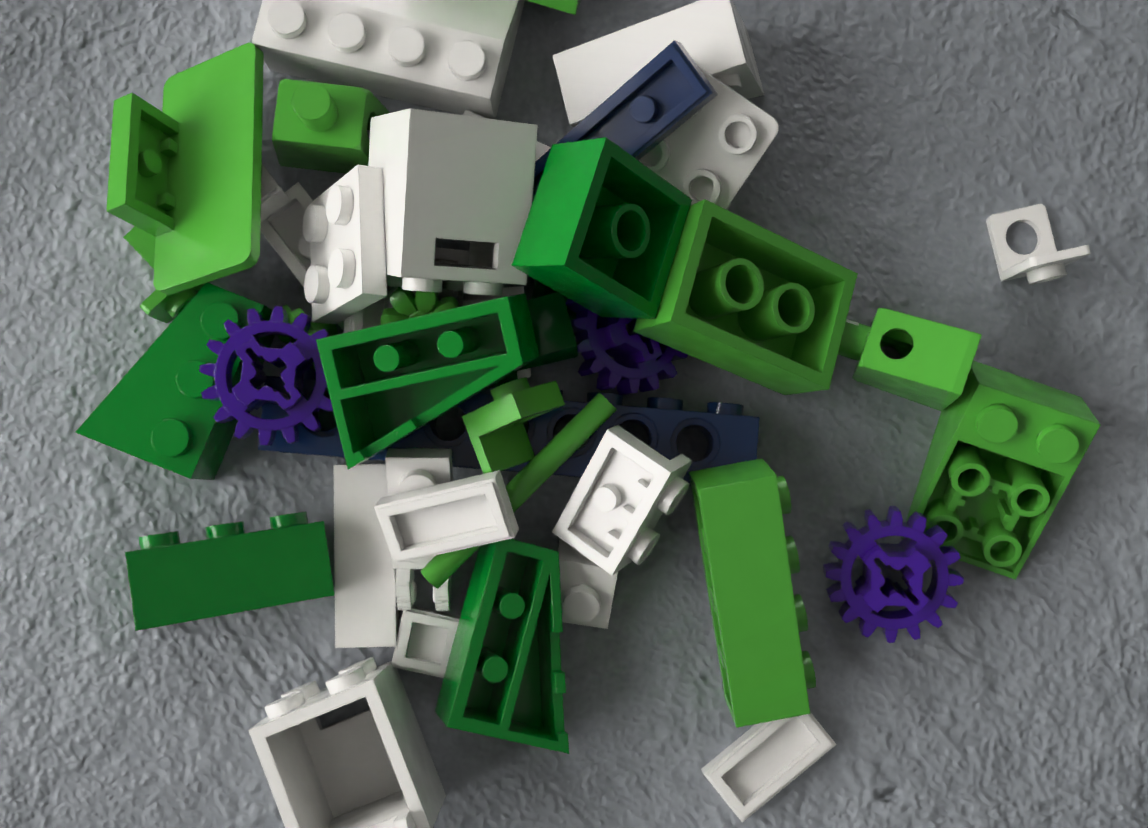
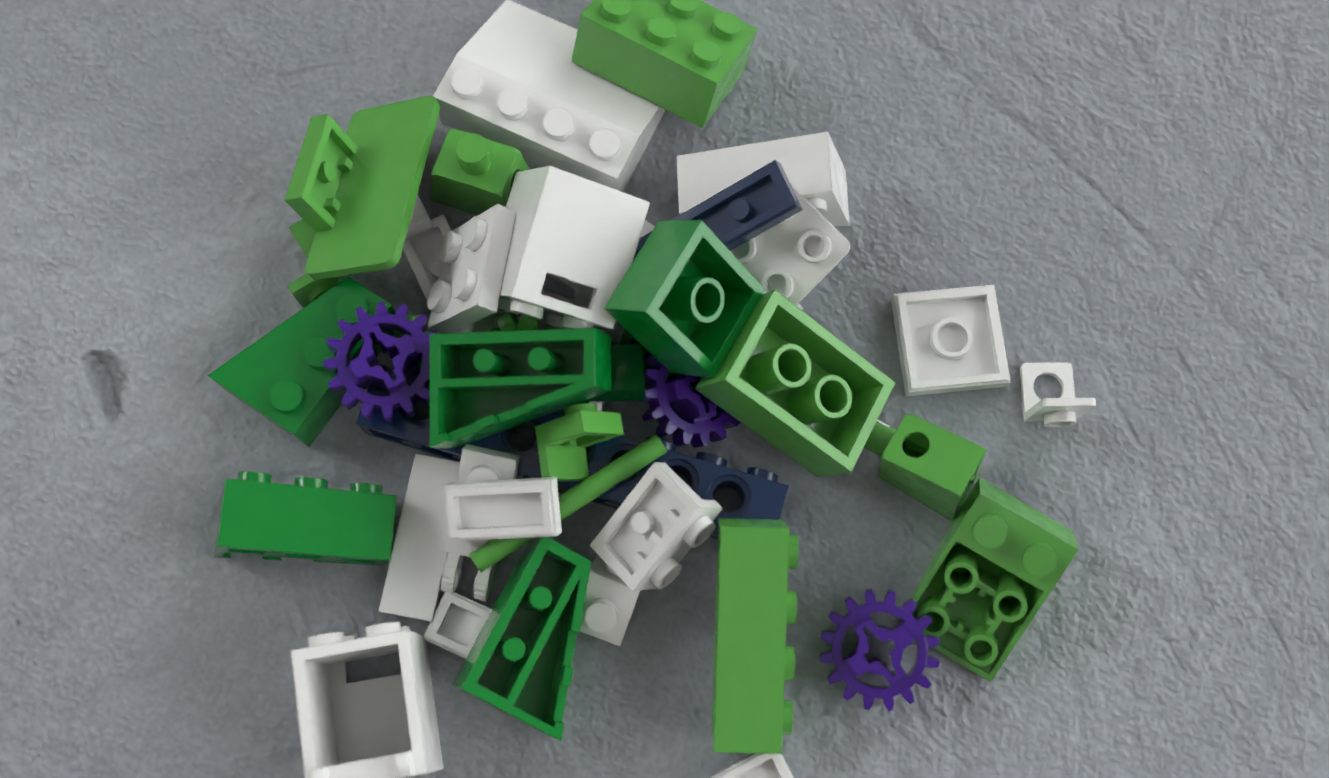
camera: 10 degrees right, 10 degrees down
(903, 205) = (950, 340): none -> white tile

